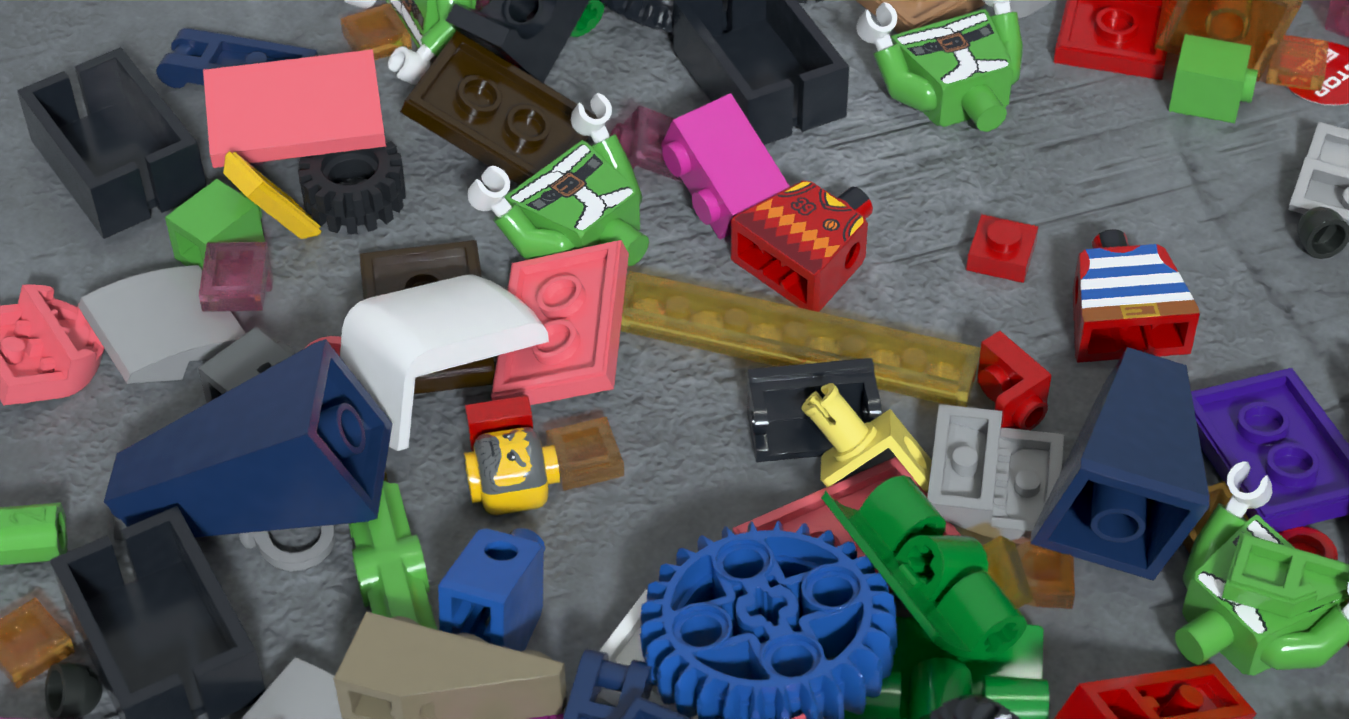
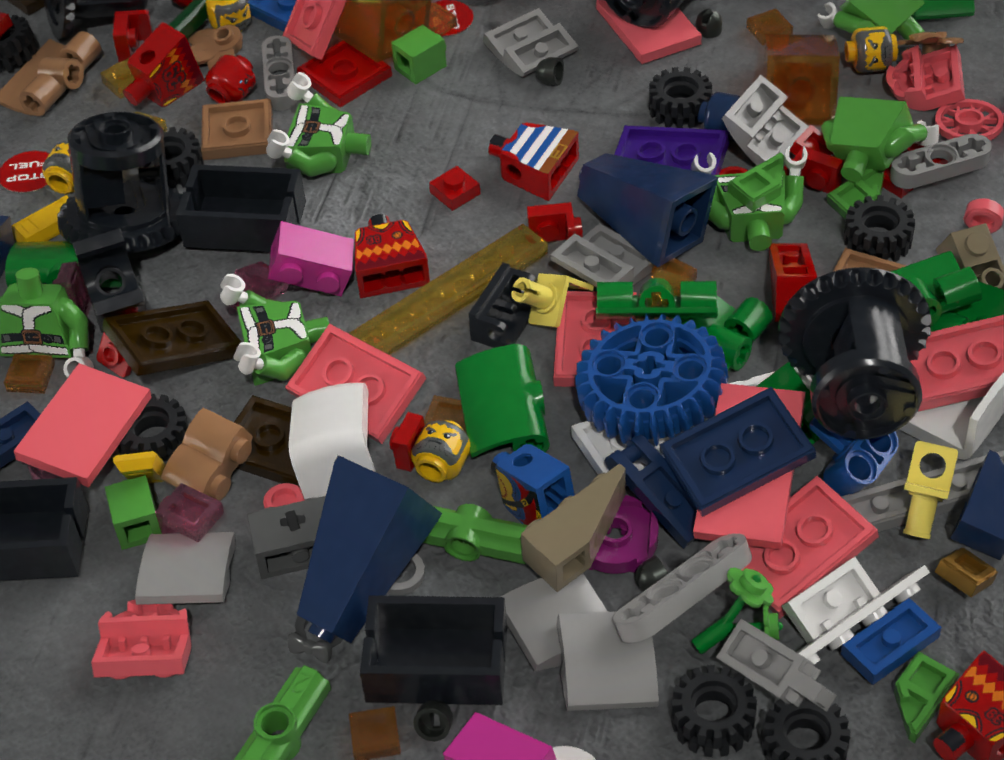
camera: 55 degrees left, 0 degrees up
(332, 247) = (208, 455): none -> medium nougat brick
(643, 496) = (502, 399): none -> green panel

